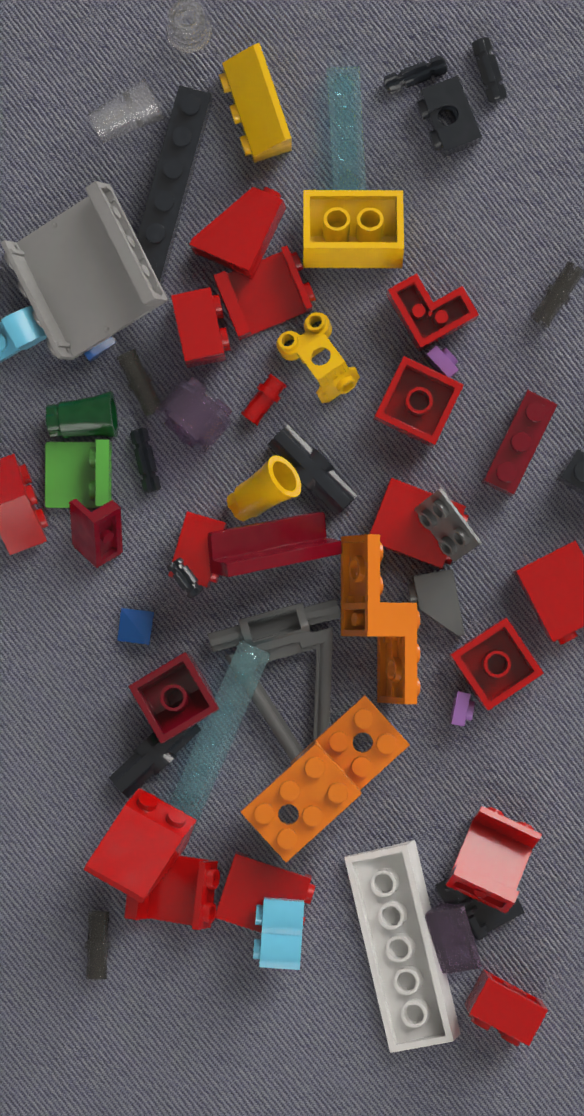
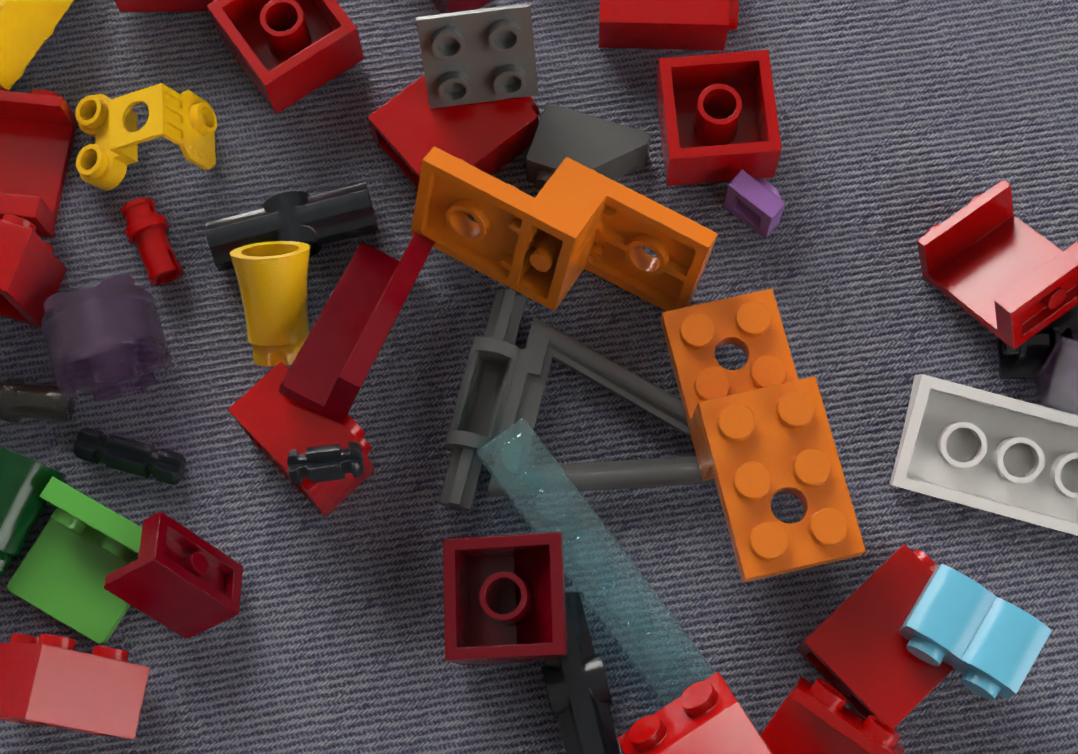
camera: 60 degrees left, 15 degrees down
(135, 626) = (365, 609): blue slope -> none

